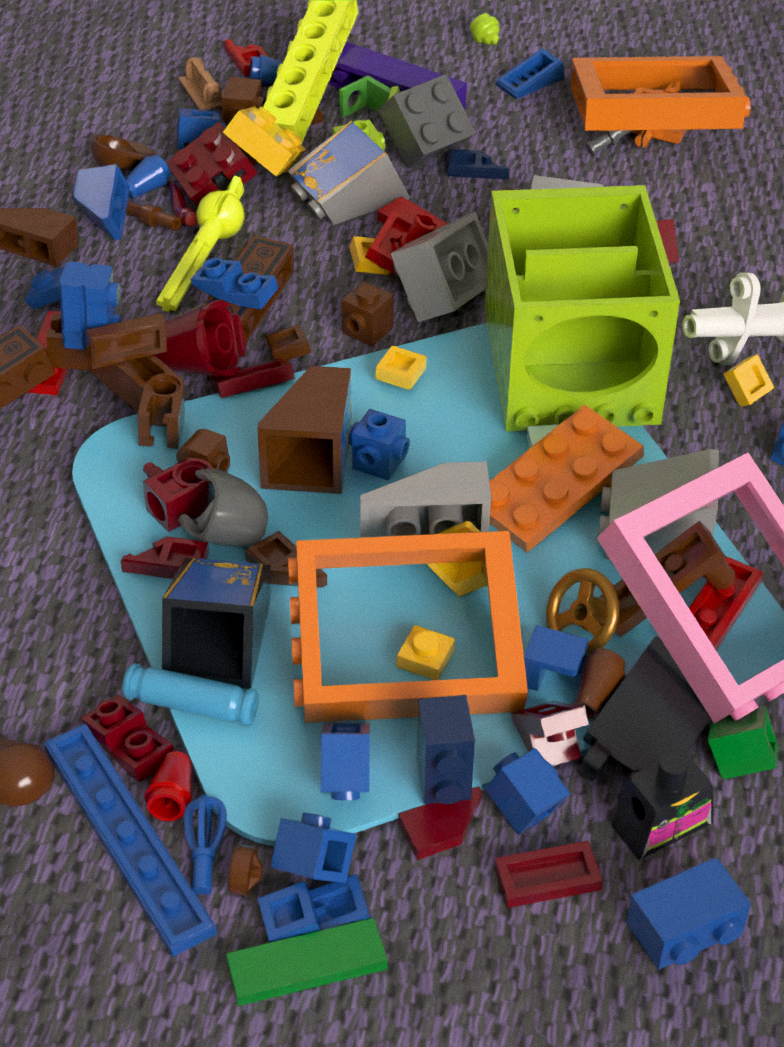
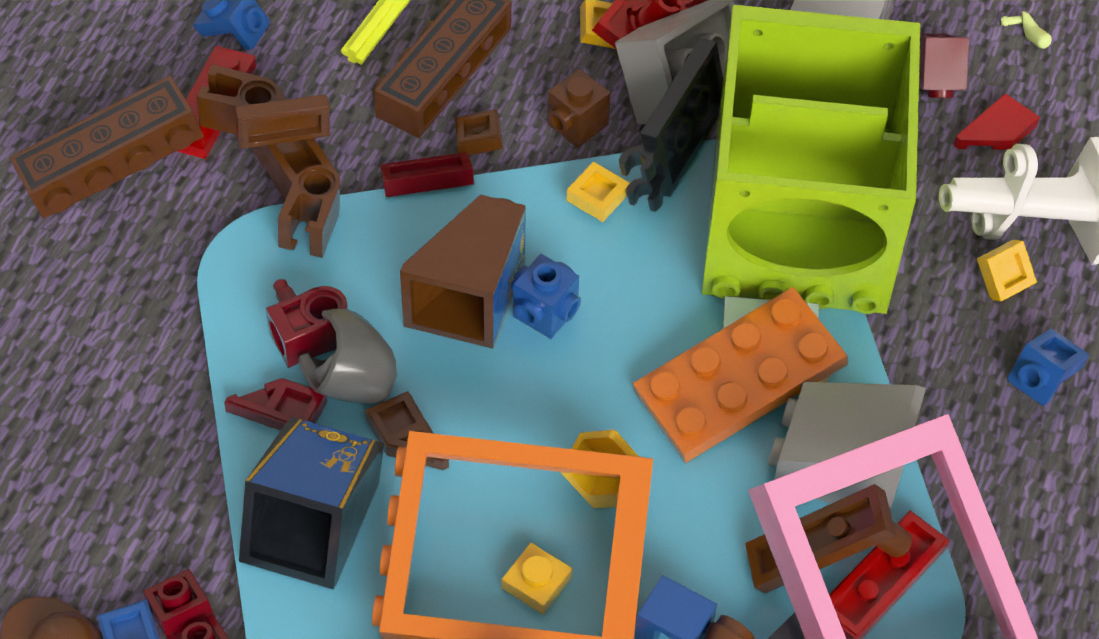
camera: 10 degrees right, 10 degrees up
(86, 301) = (243, 69): blue brick -> none
(190, 694) = (263, 588): dark azure axle -> none
(205, 341) = (378, 124): dark red cone -> none
(207, 446) = (349, 274): reddish brown plate -> none
(228, 282) = (424, 49): blue slope -> none
(429, 502) = (573, 398): light grey slope -> none
(456, 308) = (676, 127): none -> black tile
(590, 612) = (732, 562): pearl gold piece -> none
(709, 286) = (999, 126): none -> red tile
(716, 221) = (1031, 29): none -> yellowish green piece

